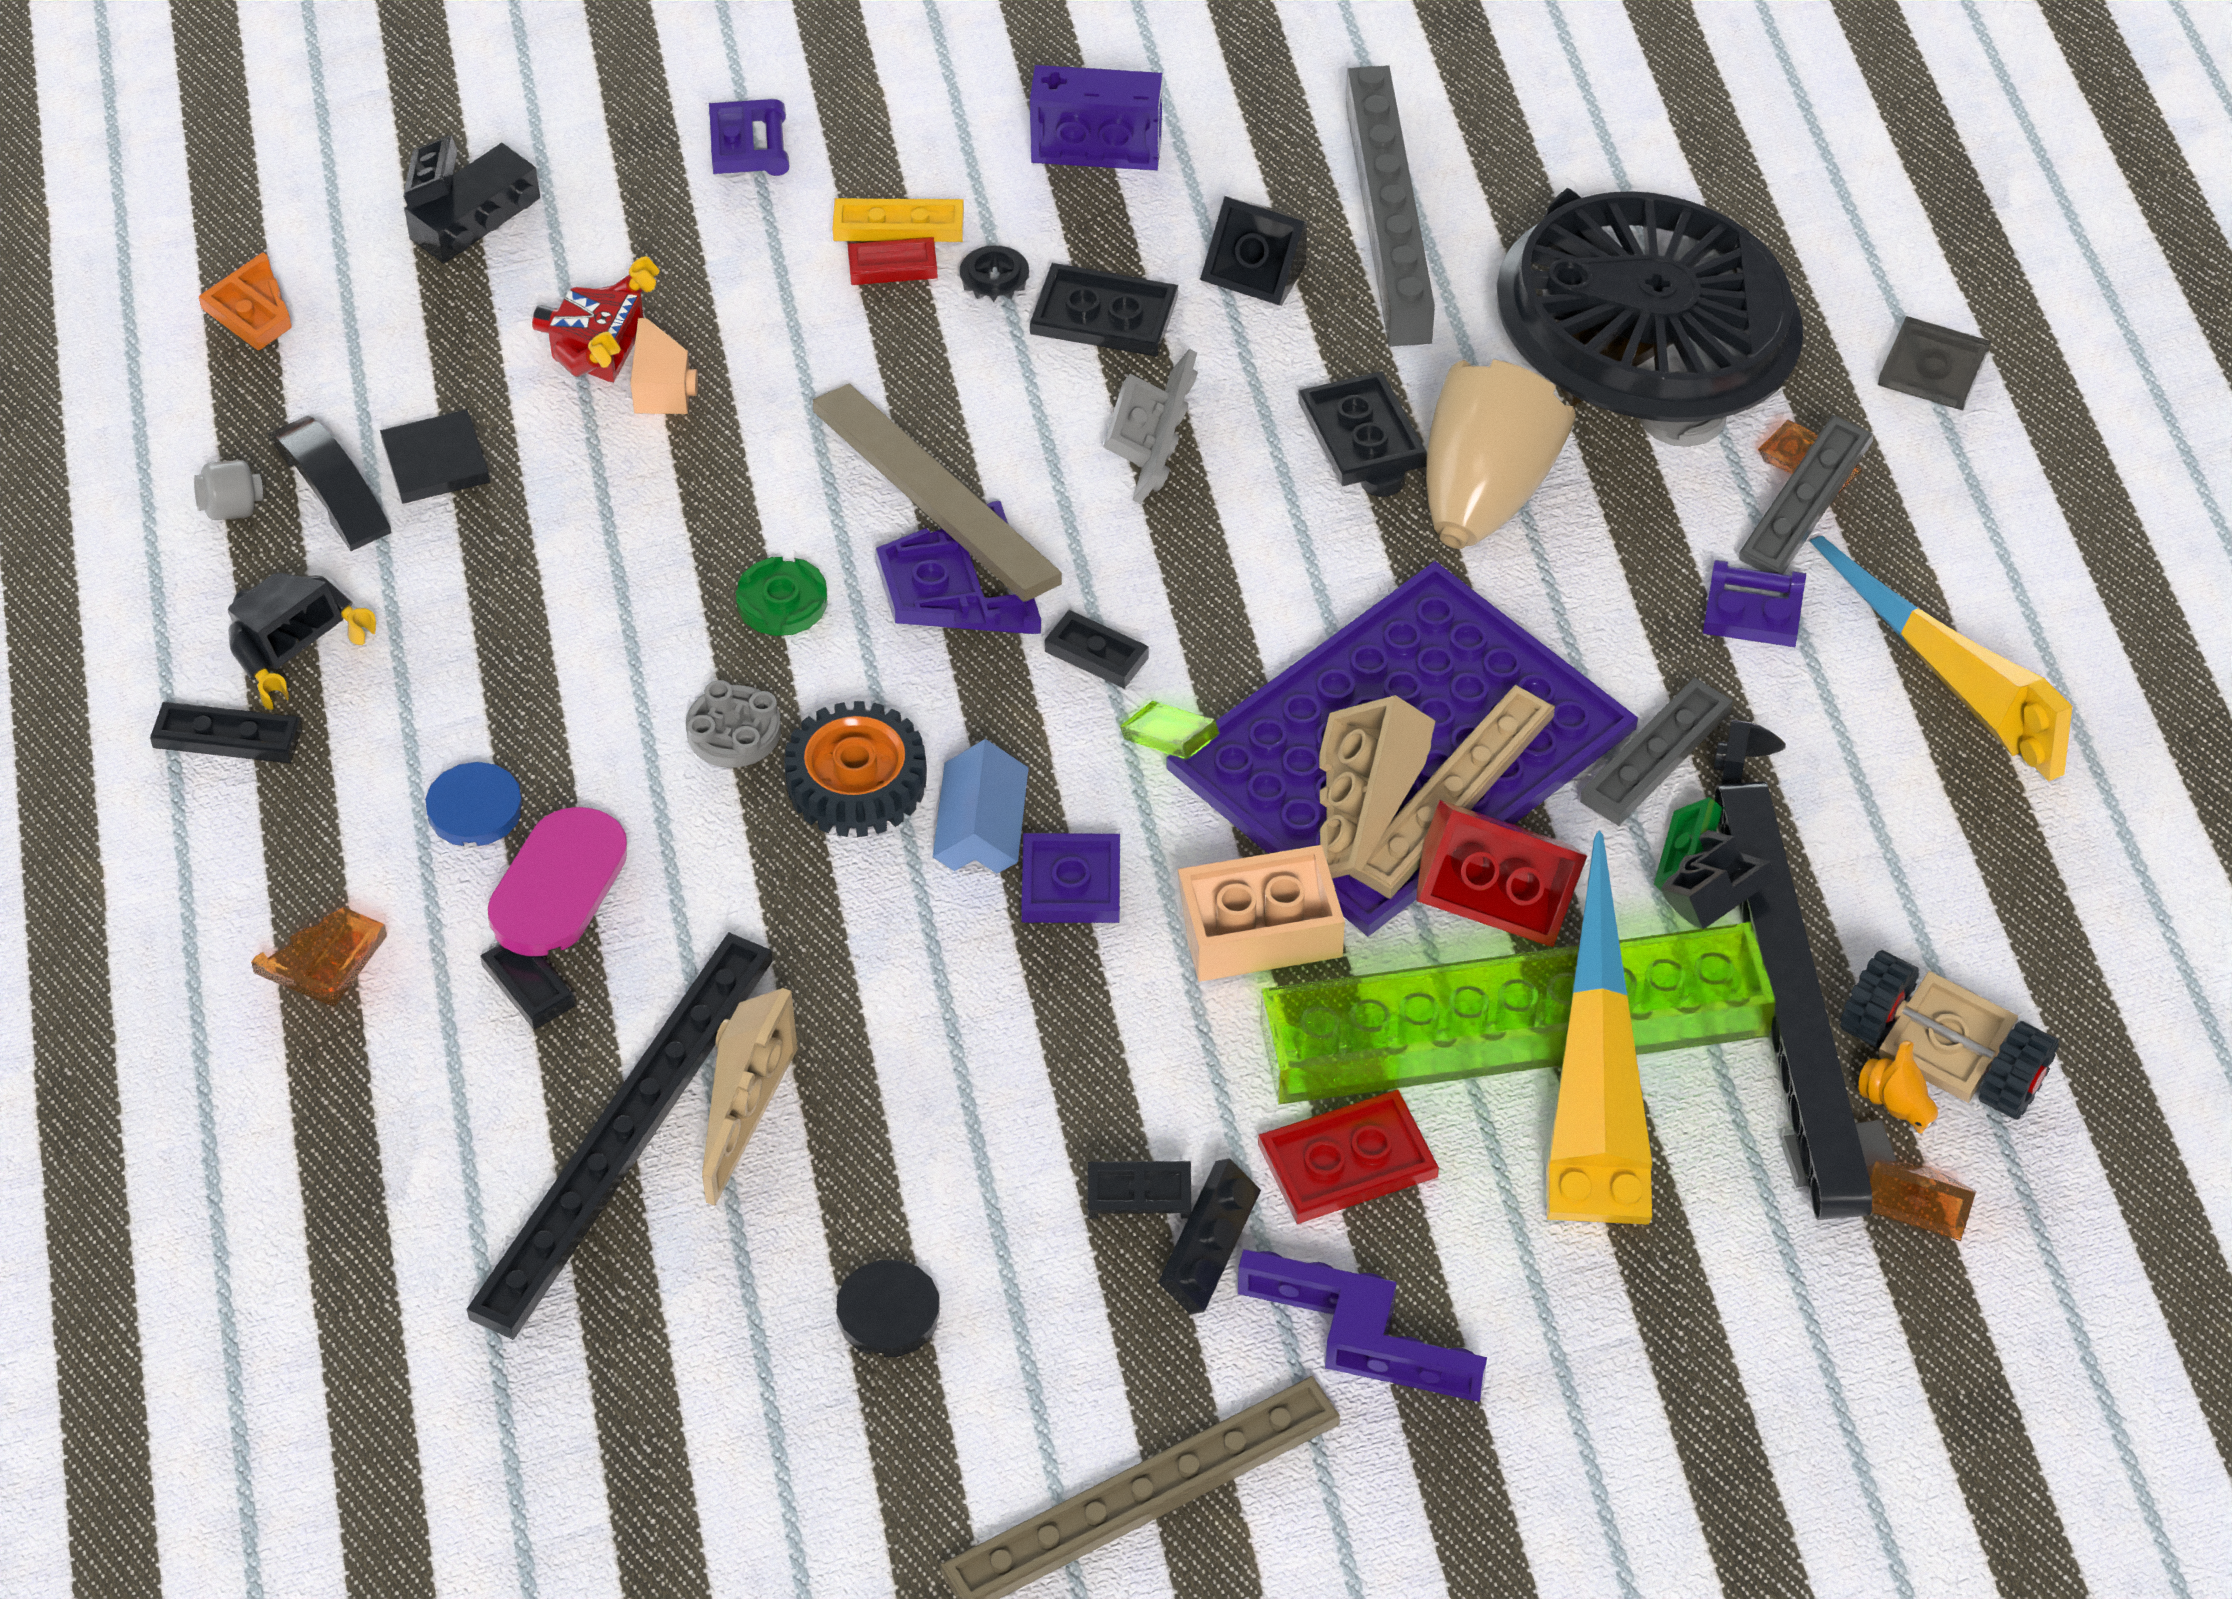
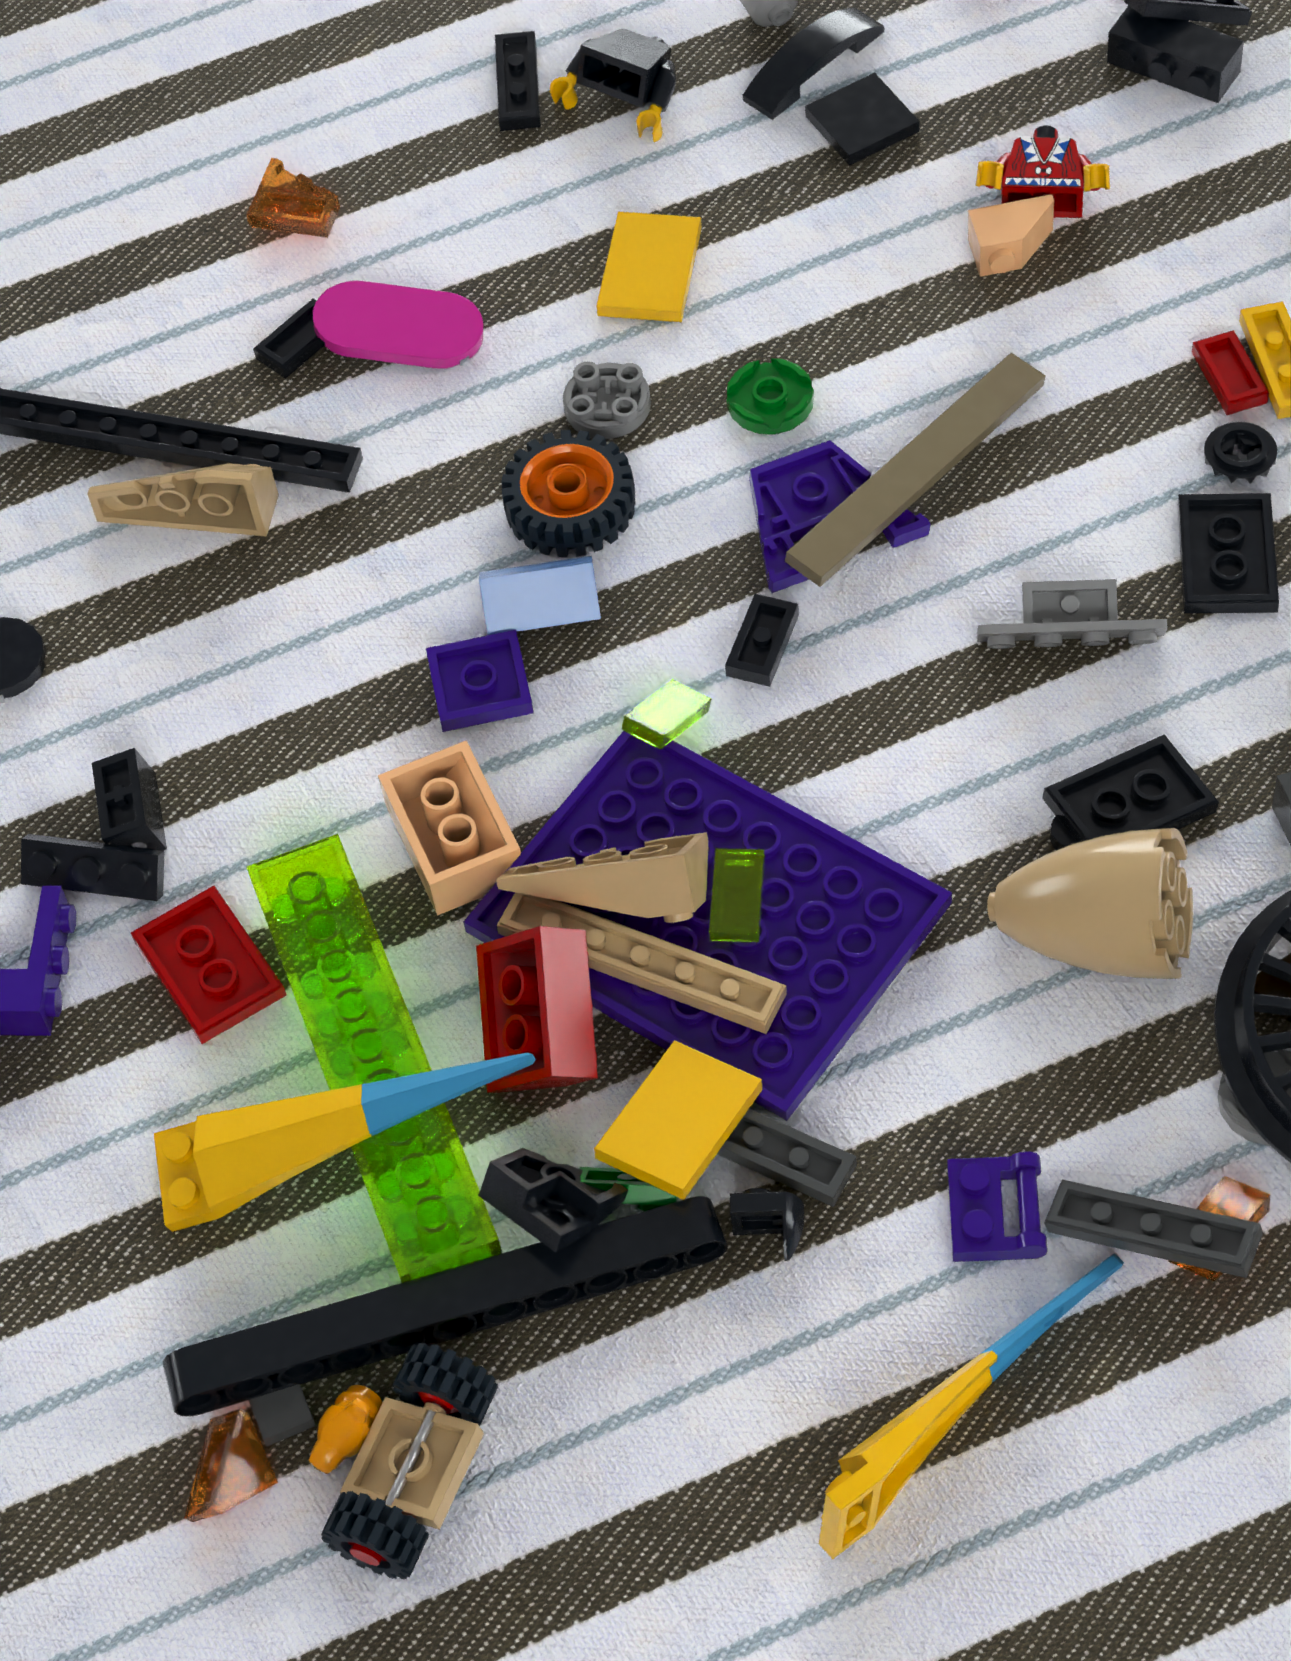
camera: 85 degrees right, 5 degrees up
(473, 804) = (476, 252): blue tile -> none
(562, 661) = (649, 266): none -> yellow tile
(1430, 701) = (737, 895): none -> clear neon green tile
(1641, 783) = (678, 1119): none -> yellow tile

